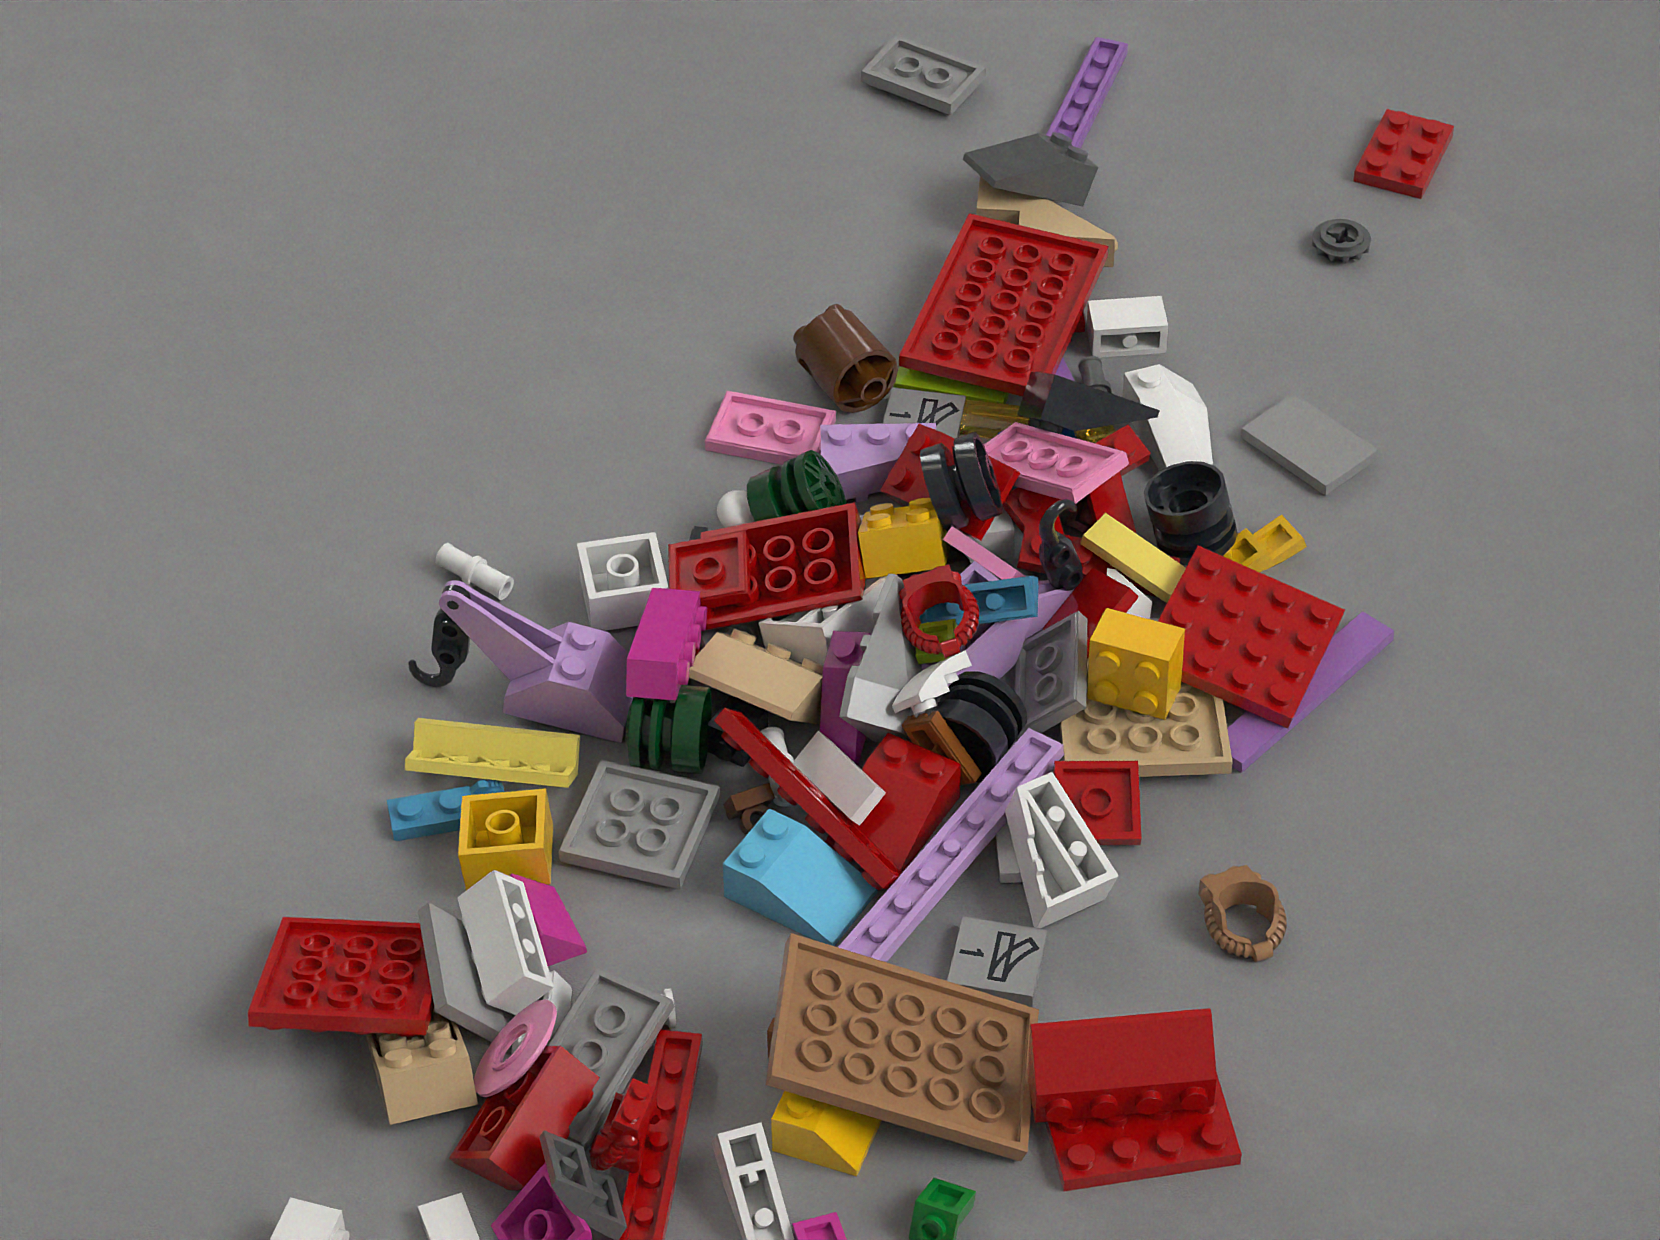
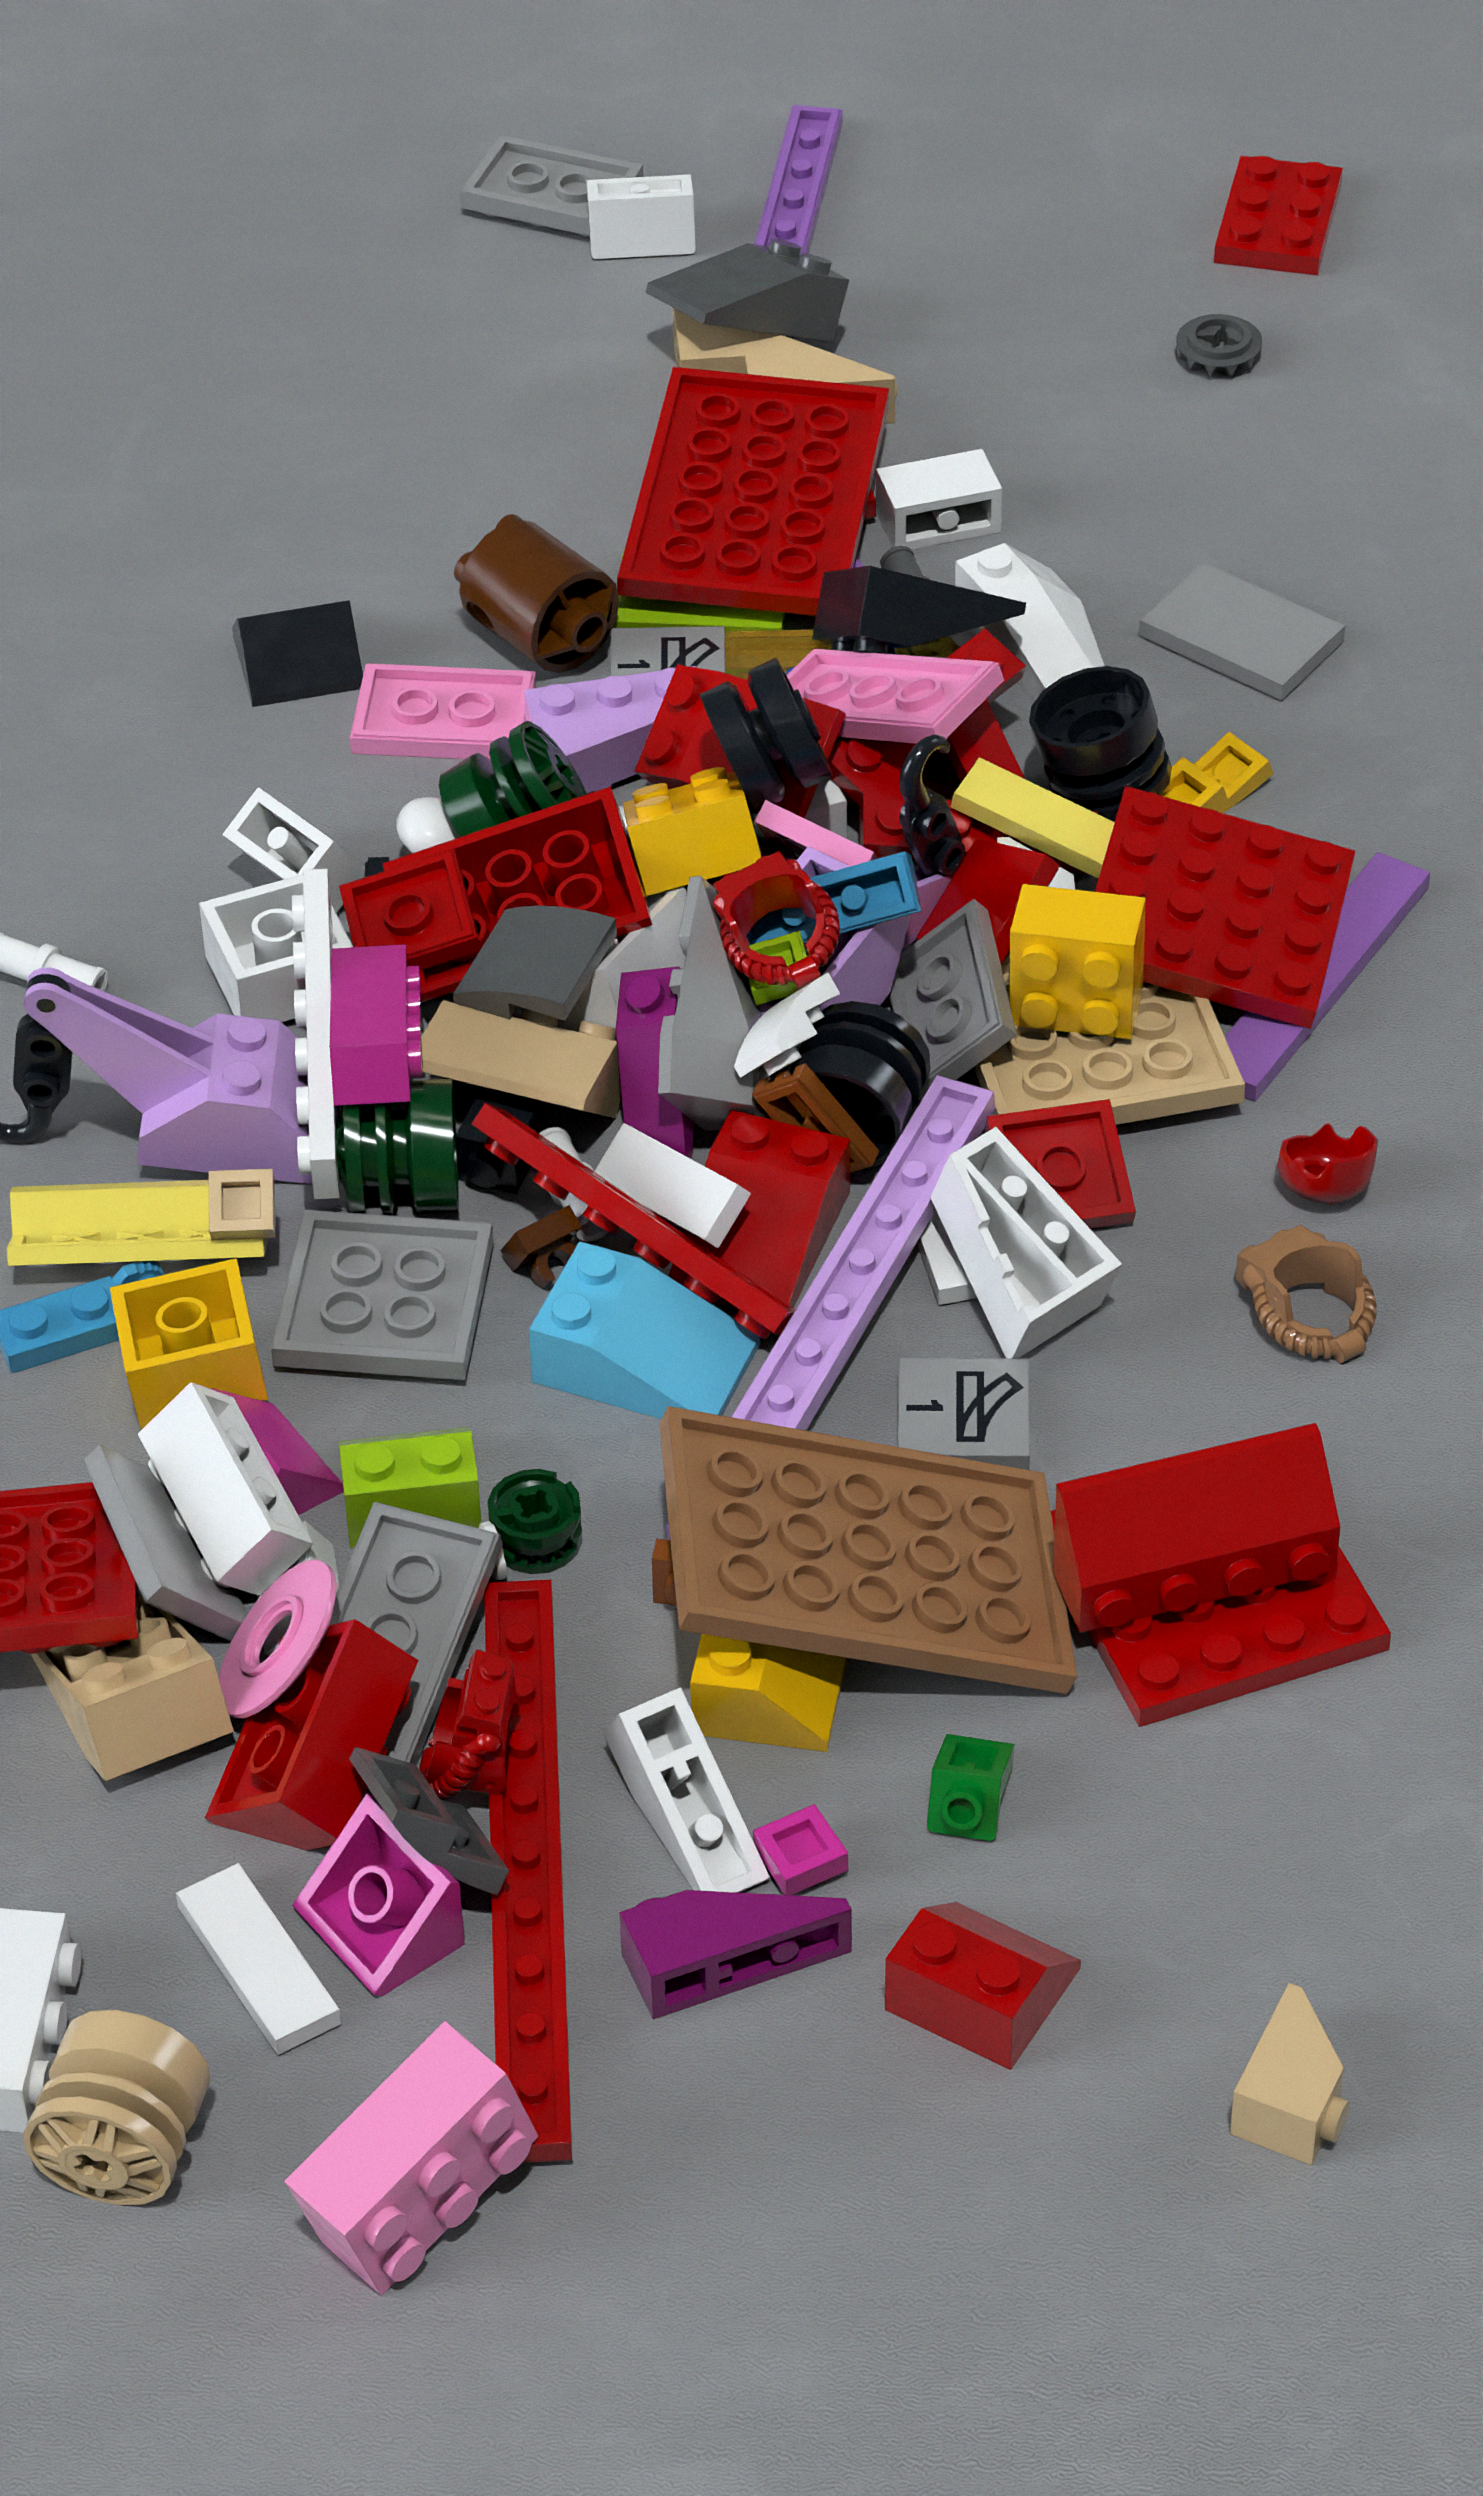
camera: 10 degrees left, 0 degrees up
(558, 751) = (241, 1204): none -> tan tile
(629, 949) = (411, 1471): none -> lime slope
(644, 565) = (312, 1010): none -> white plate
(648, 511) = (290, 844): none -> white brick
(685, 378) = (298, 653): none -> black slope
(702, 989) = (536, 1518): none -> dark green wheel
(781, 615) = (536, 961): none -> dark grey slope
(975, 103) = (641, 216): none -> white panel
(1276, 824) = (1327, 1165): none -> red hair

